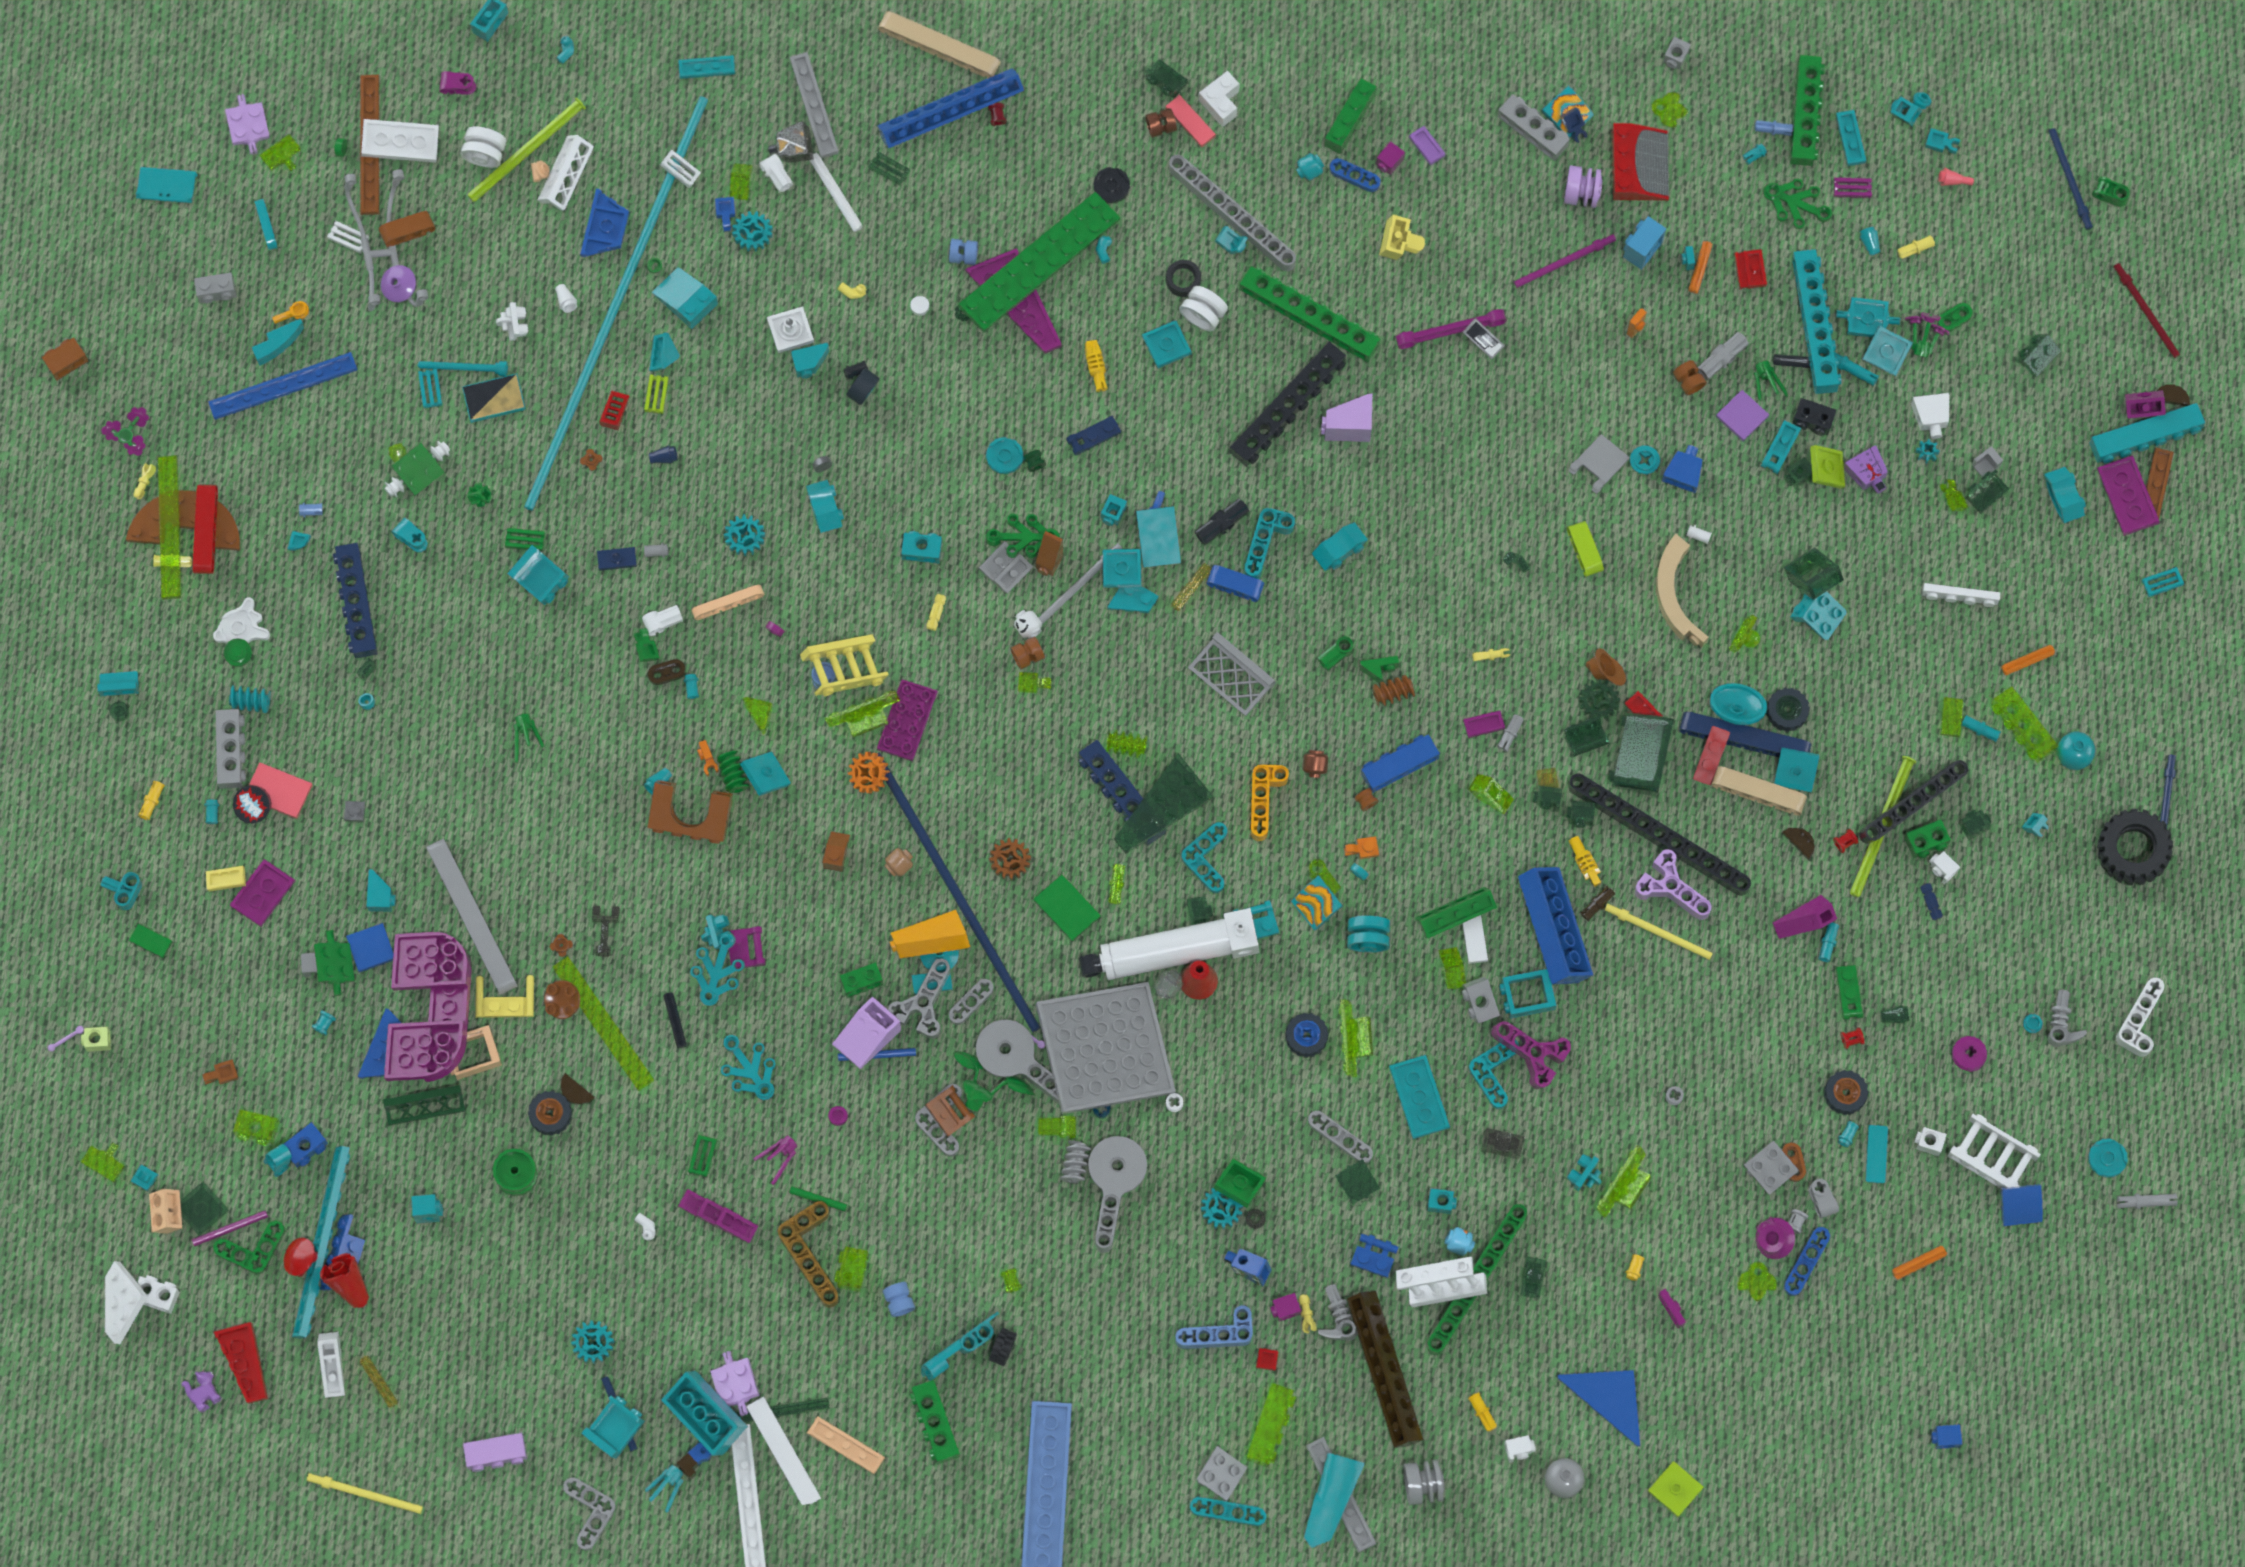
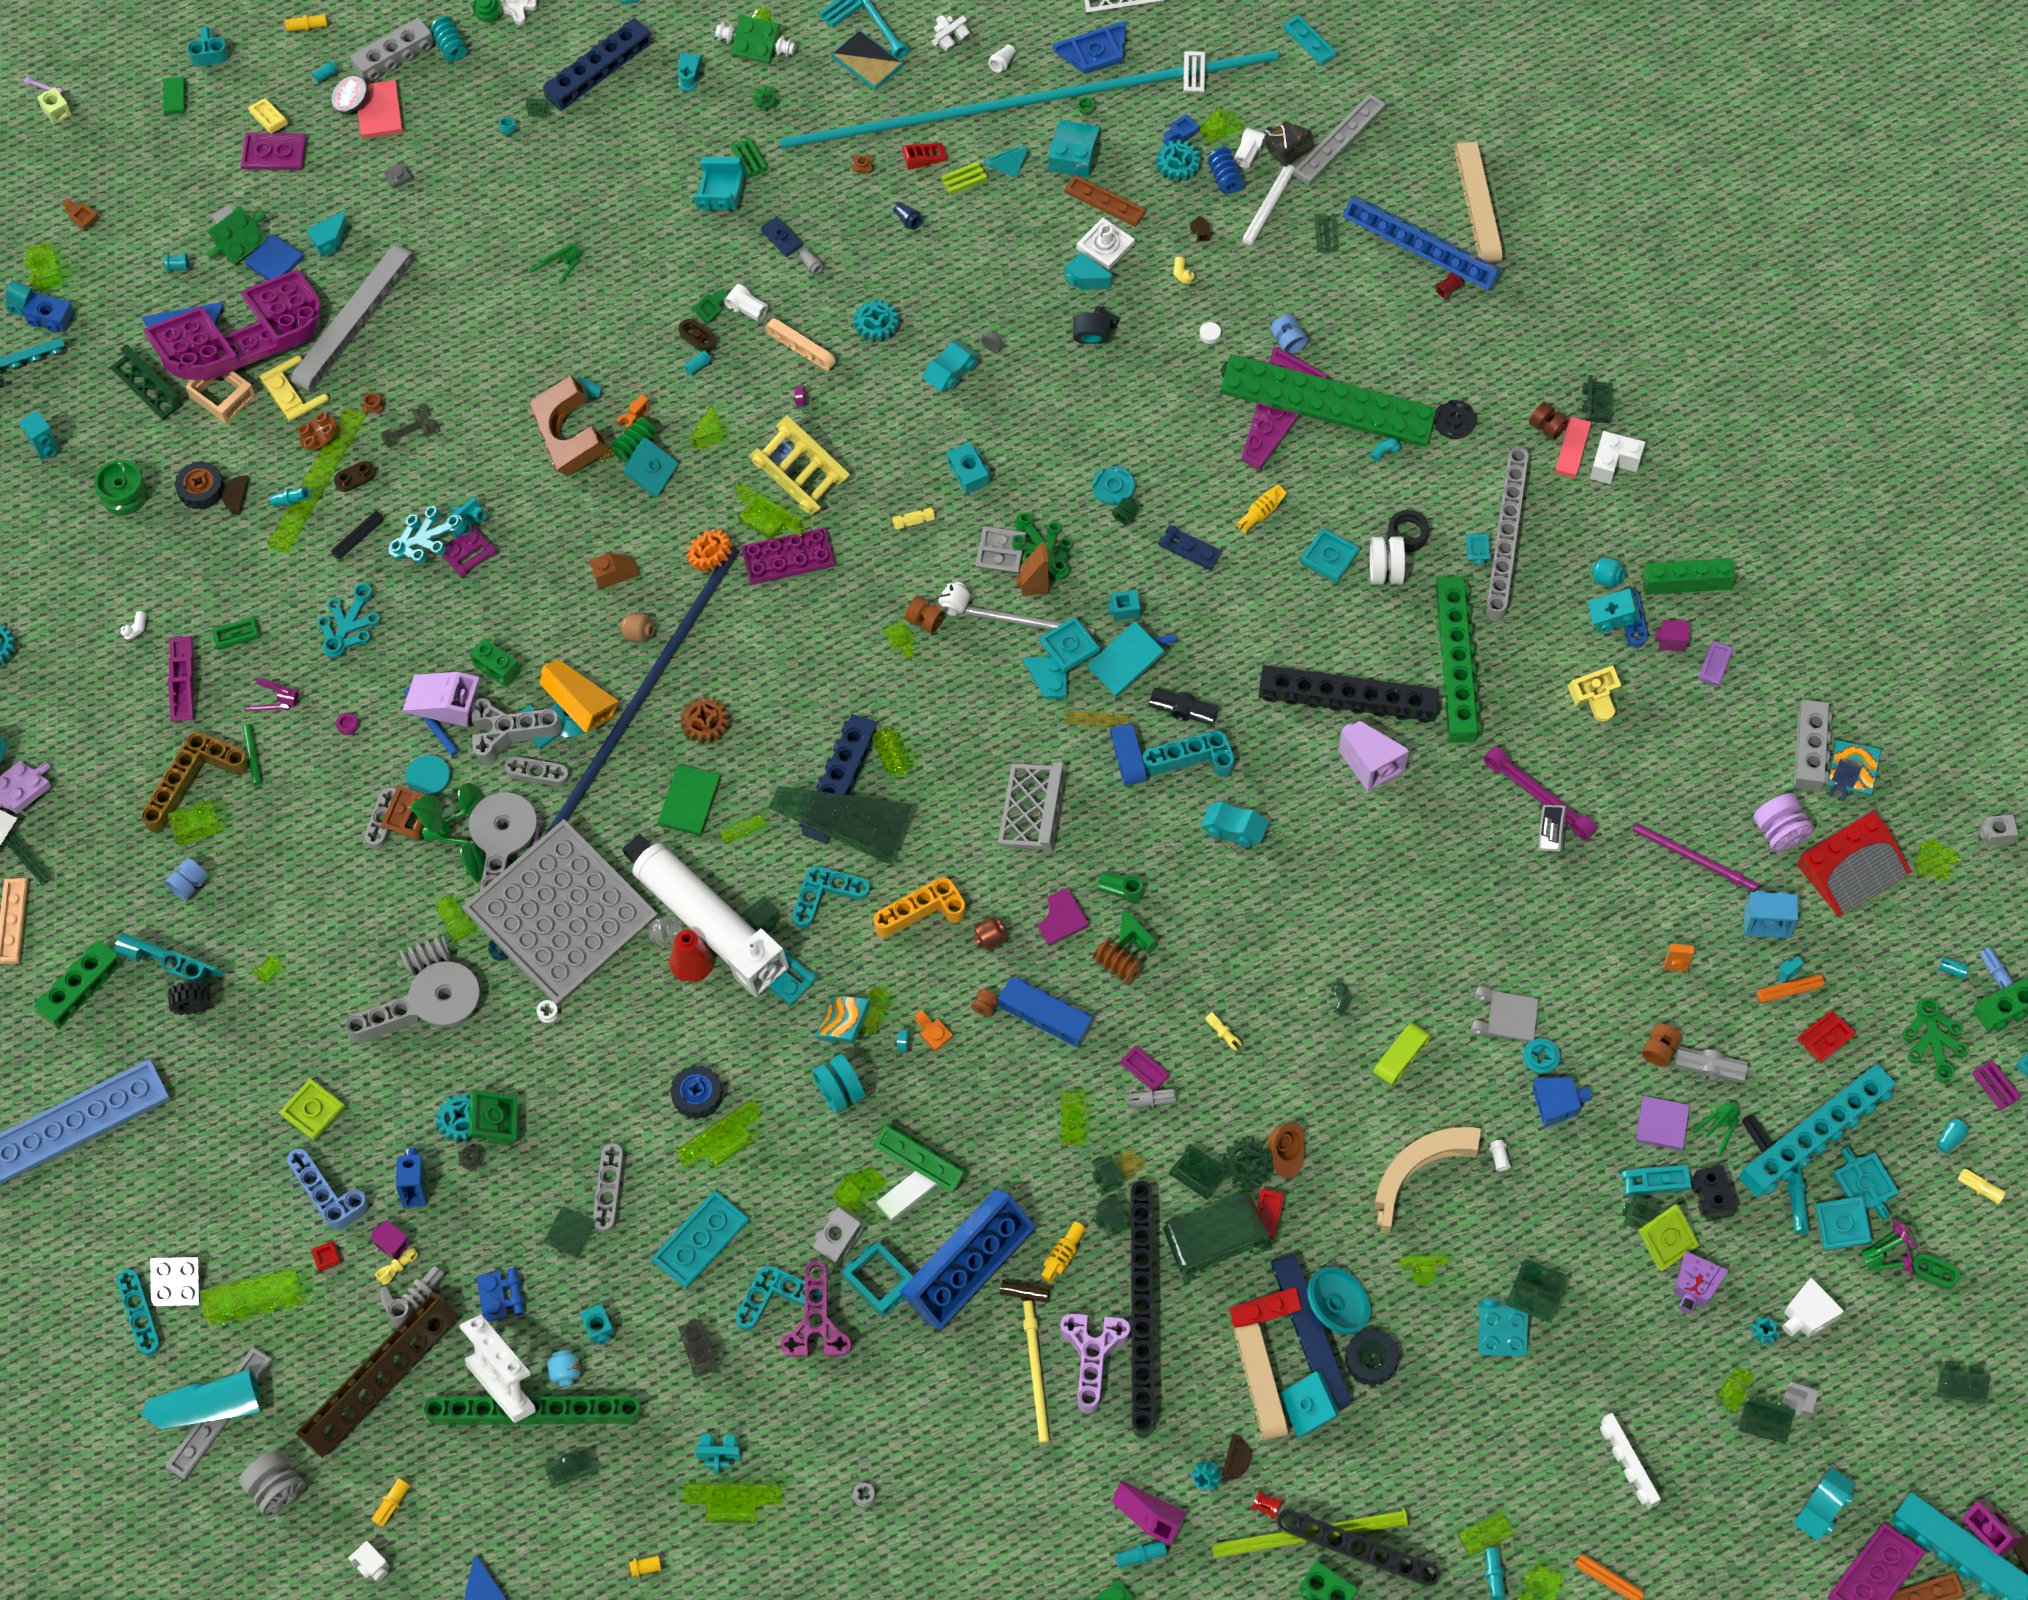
camera: 60 degrees right, 10 degrees down
(611, 1050) = (290, 496): none -> teal pin
(619, 993) = (354, 476): none -> dark brown plate
(749, 305) = (1105, 200): none -> dark orange tile
(787, 204) = (1225, 170): none -> blue piece
(825, 253) = (1201, 229): none -> dark brown piece
(922, 1081) = (428, 775): none -> teal tile
(1146, 1308) = (312, 1109): none -> lime plate
(1333, 707) = (1063, 918): none -> magenta tile
(1345, 173) = (1614, 610): none -> teal brick
(1802, 866) = (1206, 1475): none -> teal gear

